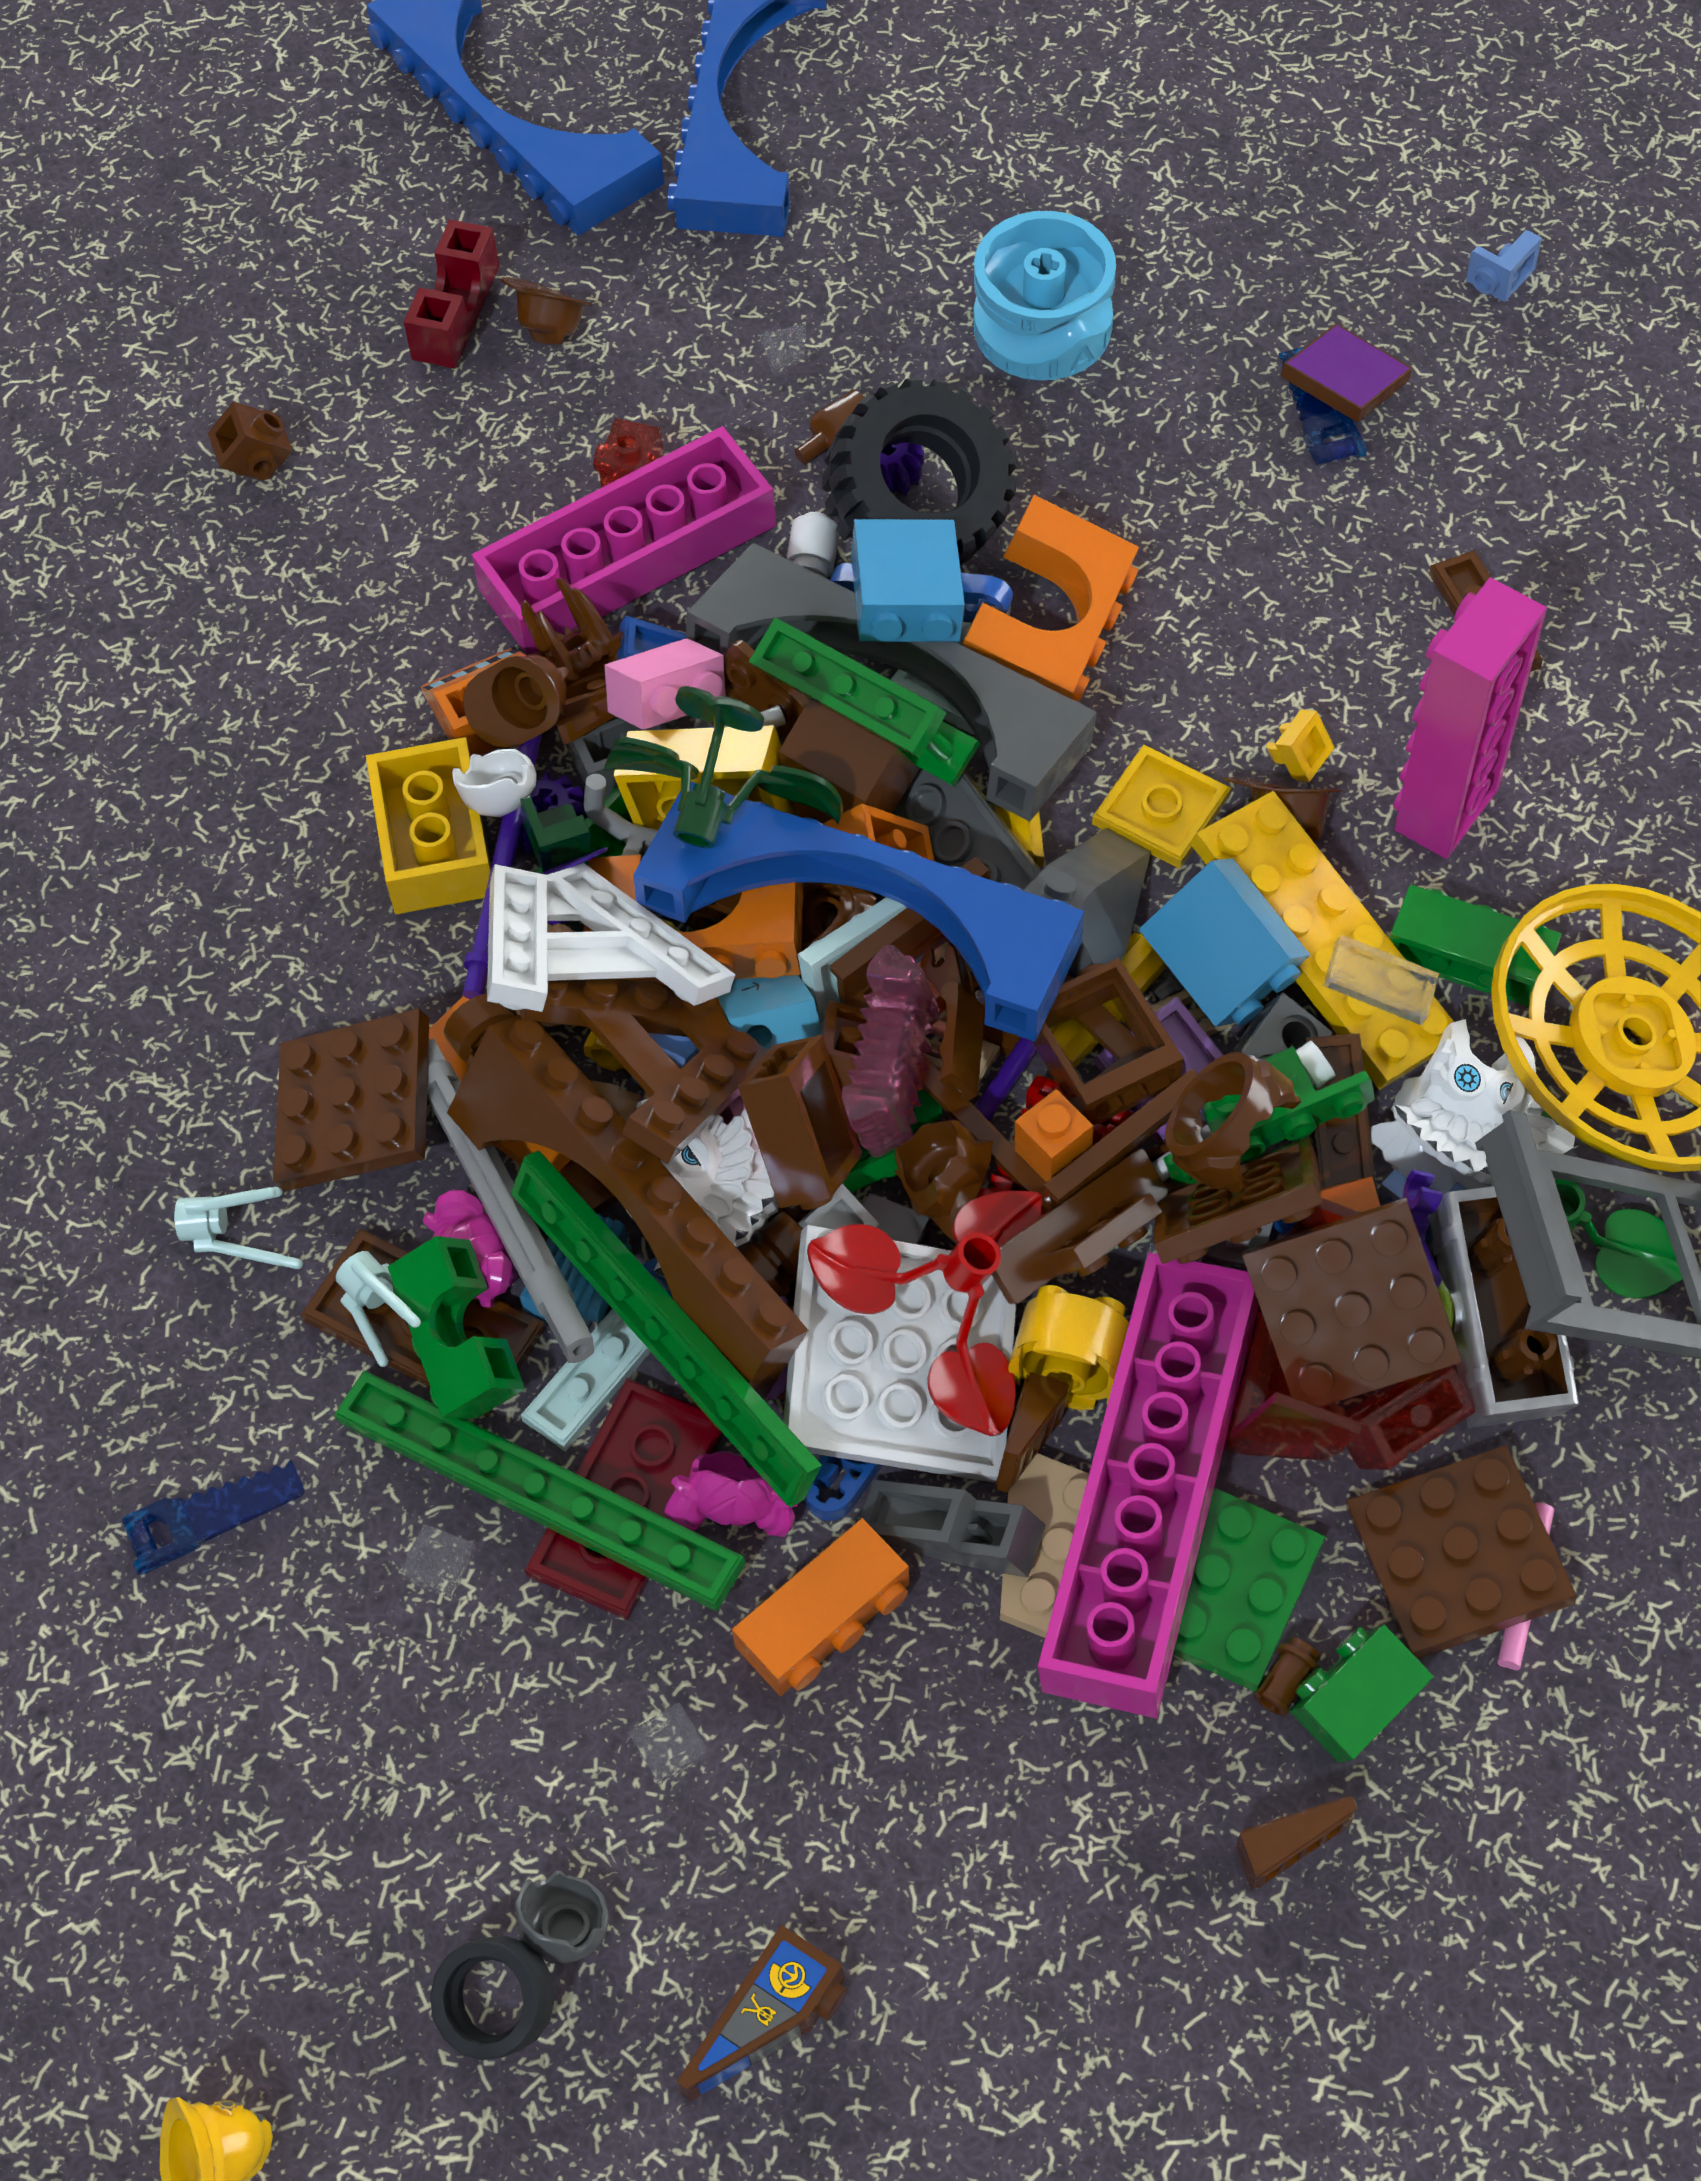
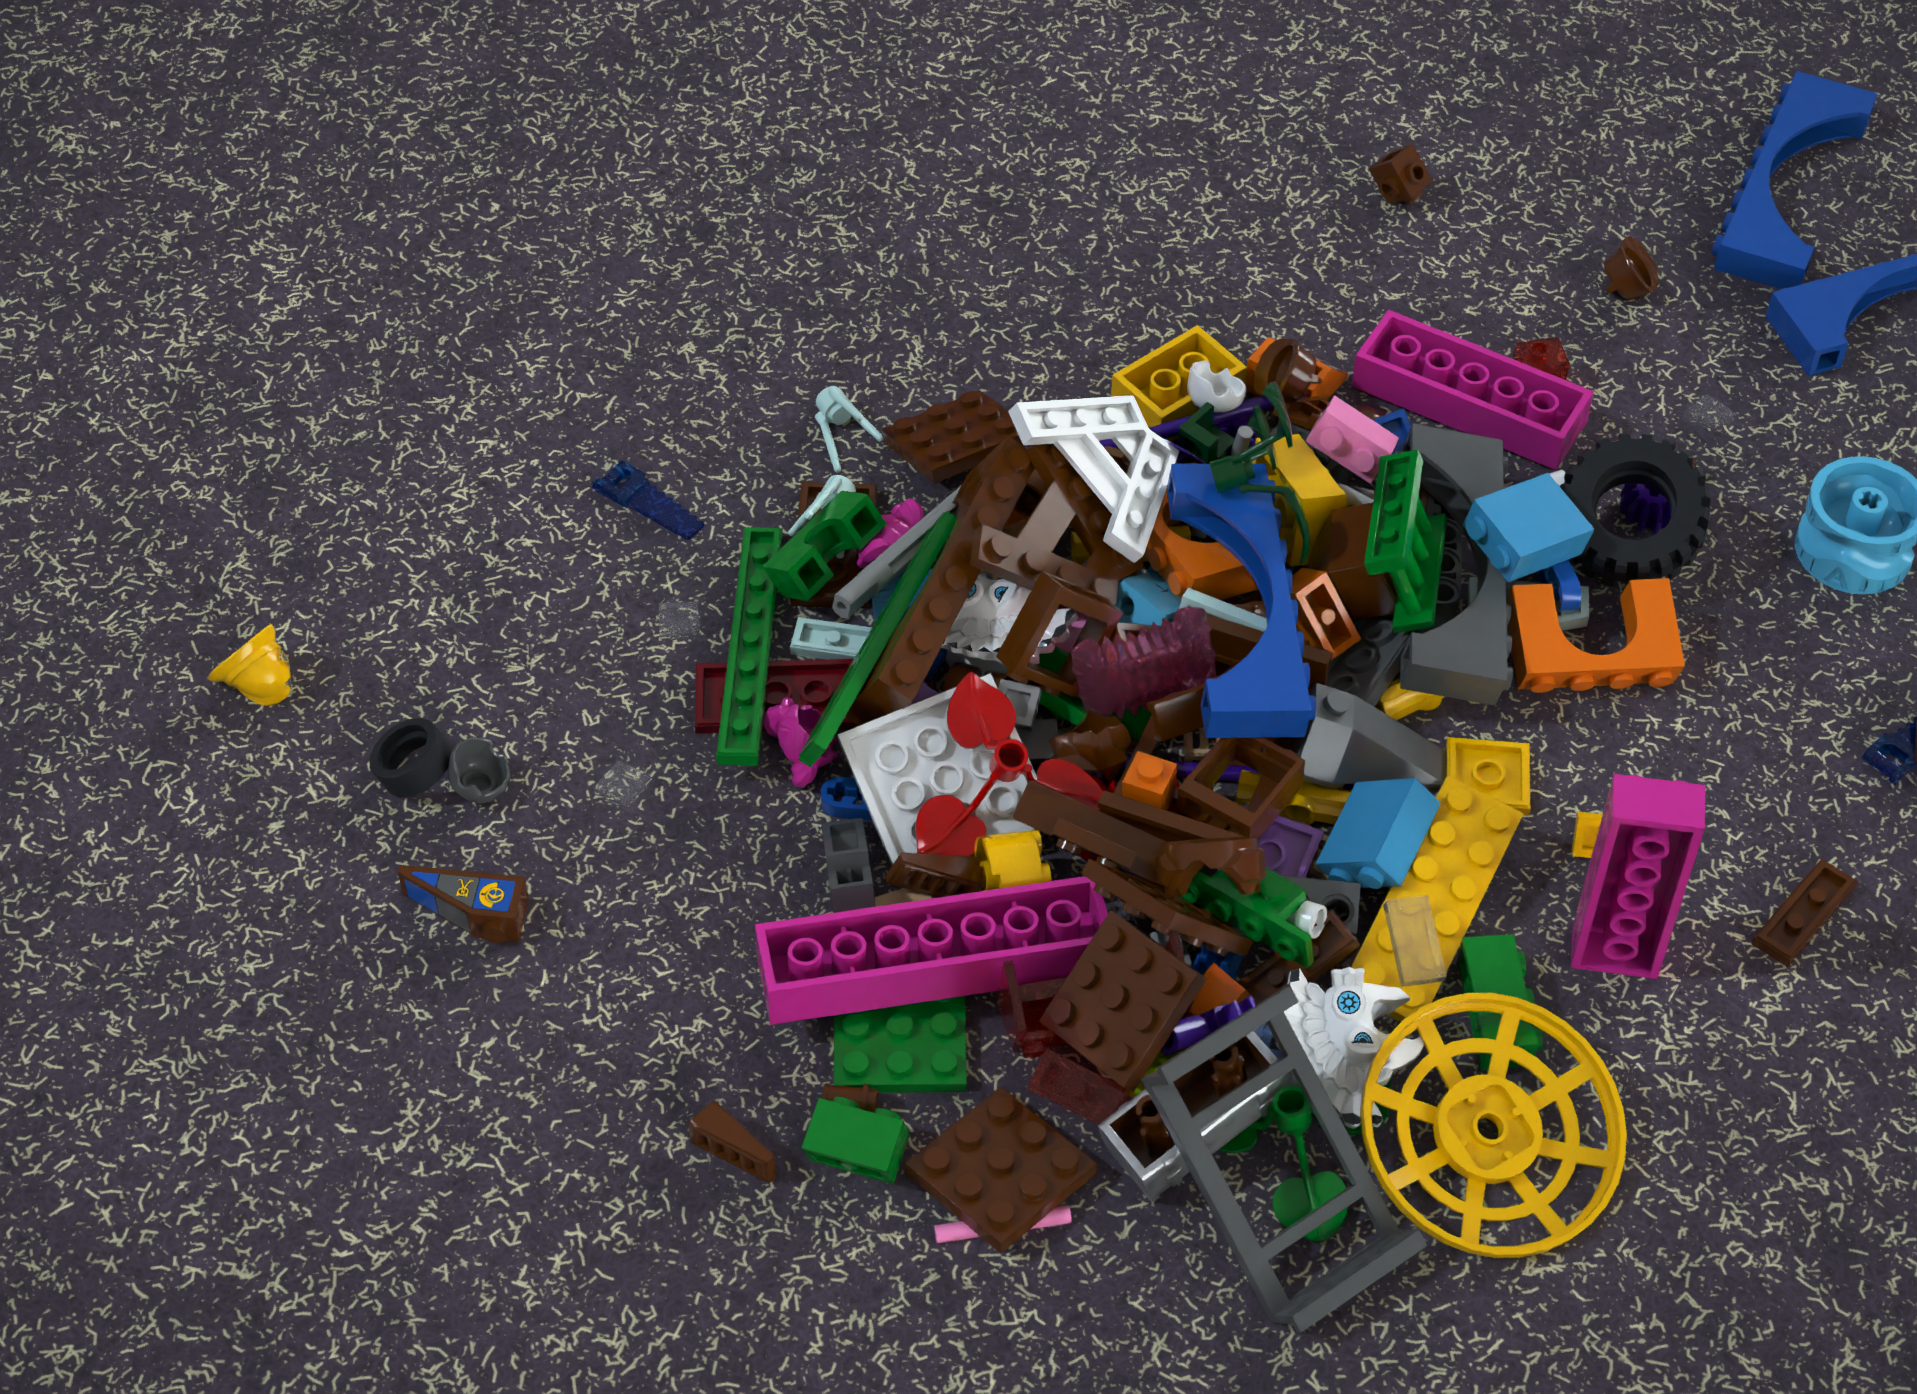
camera: 60 degrees right, 10 degrees down
(444, 317) = (1569, 226): dark red arch -> none
(590, 631) = (1374, 401): reddish brown piece -> none
(822, 1608) = (753, 821): orange brick -> none
(1306, 805) = (1535, 841): reddish brown piece -> none

